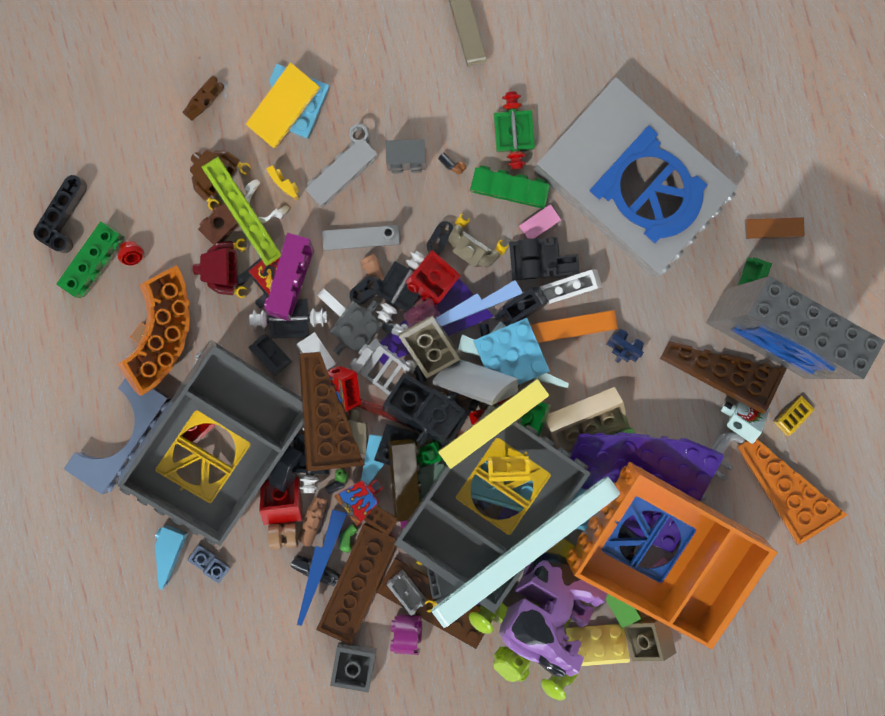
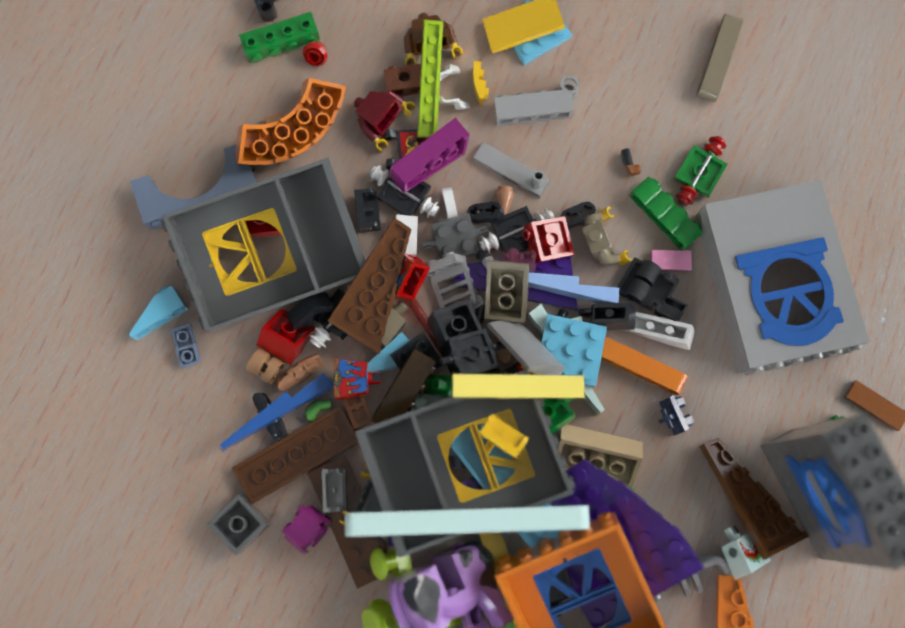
camera: 30 degrees right, 10 degrees down
(339, 482) = (349, 354): arm -> none
(405, 155) = (596, 127): dark grey brick -> none
(779, 421) = (772, 586): yellow slope -> none

